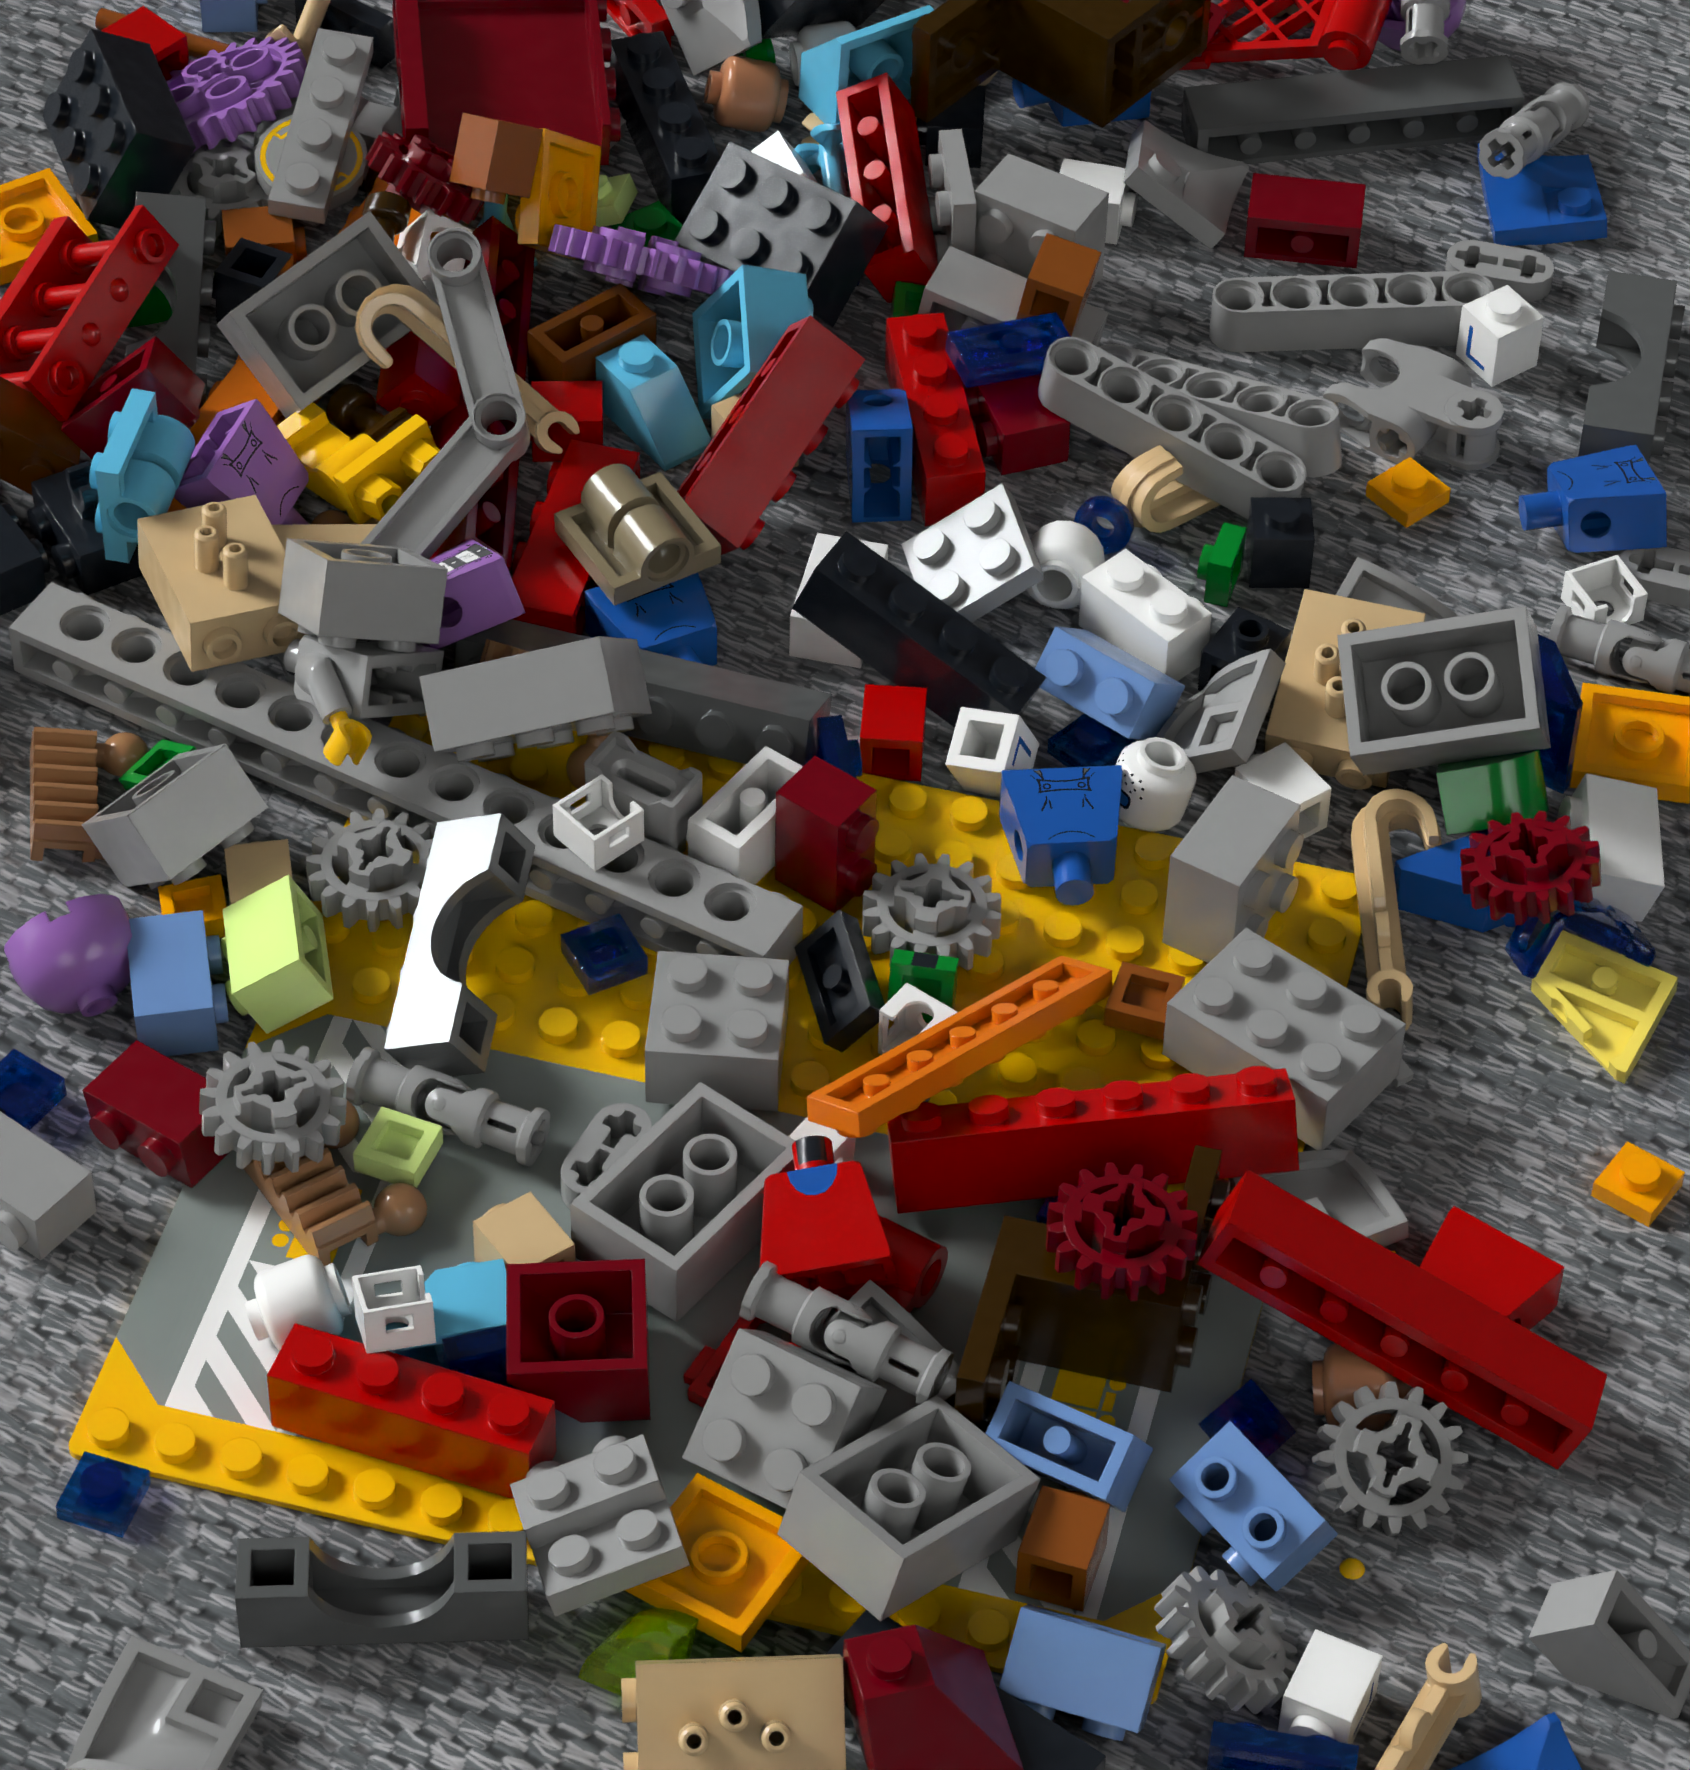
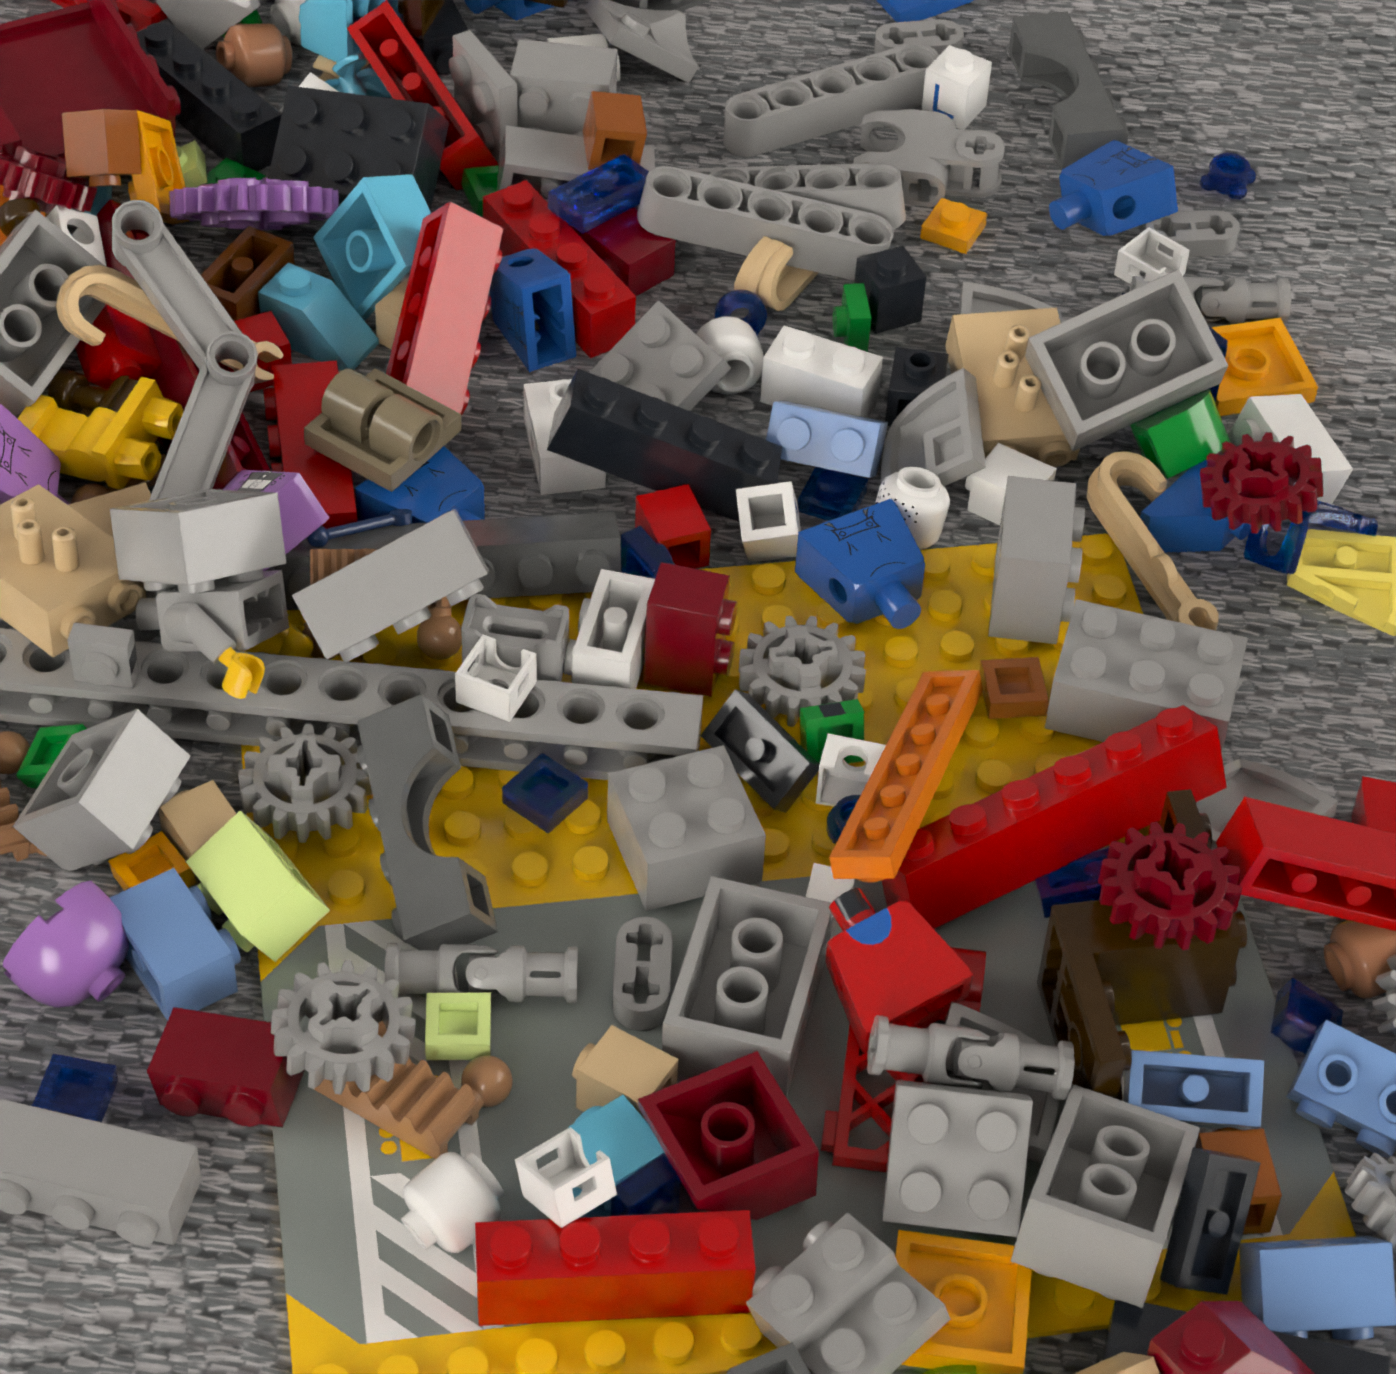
camera: 25 degrees left, 0 degrees up
(231, 683) = (103, 655): none -> light grey plate
(513, 629) = (396, 517): none -> dark blue hinge
(995, 1566) = (1209, 1221): none -> black plate
(1304, 220) = (754, 40): dark red brick -> none

